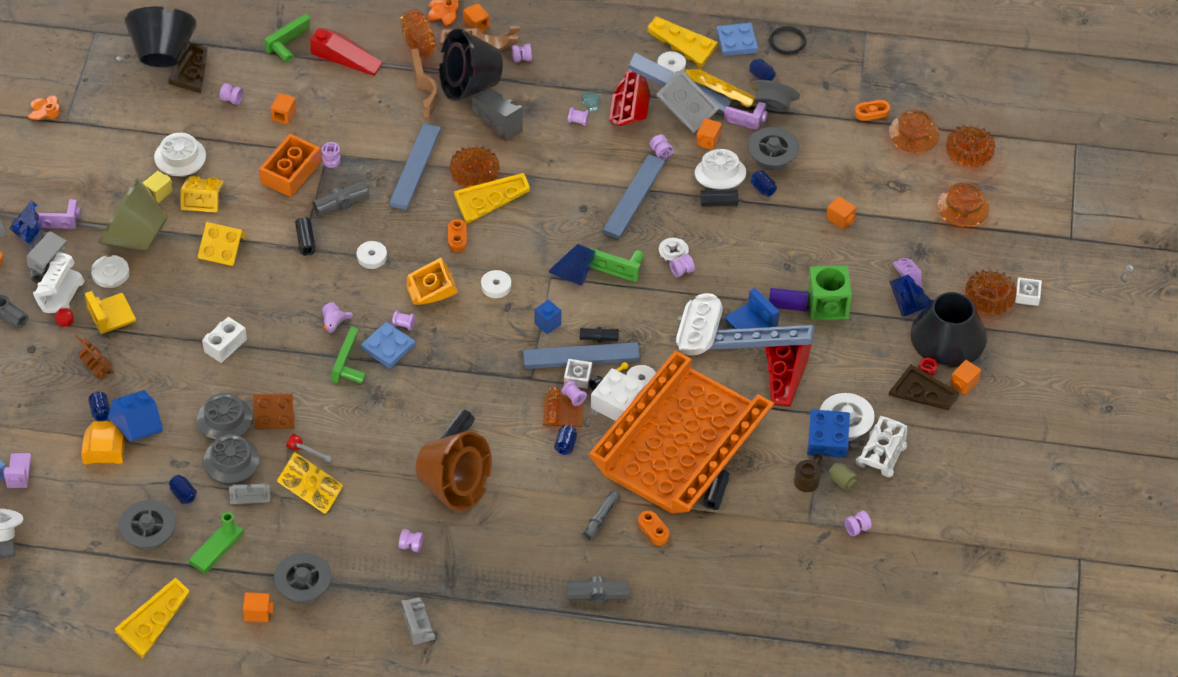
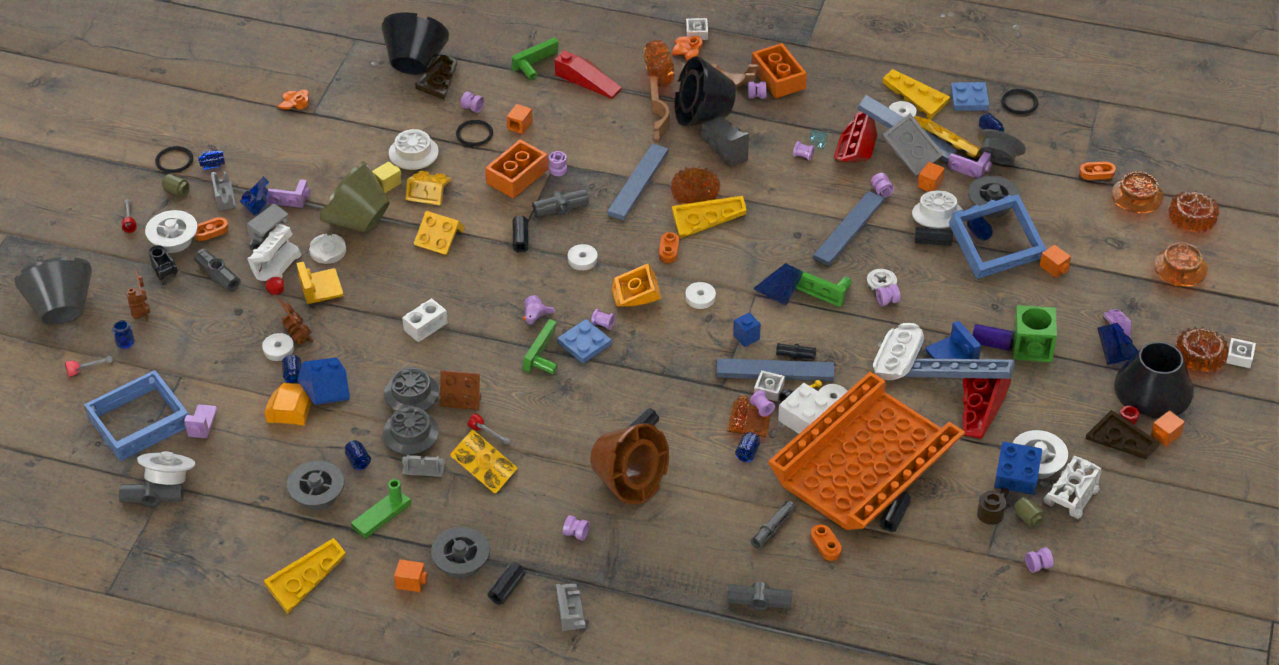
camera: 10 degrees right, 5 degrees down
(80, 376) = (277, 346): none -> white piece
(239, 115) = (475, 143): none -> black tyre
(352, 604) = (506, 583): none -> black axle
(476, 17) = (718, 55): orange brick -> none
(542, 29) = (779, 70): none -> orange brick
(766, 227) = (1006, 262): none -> medium blue window

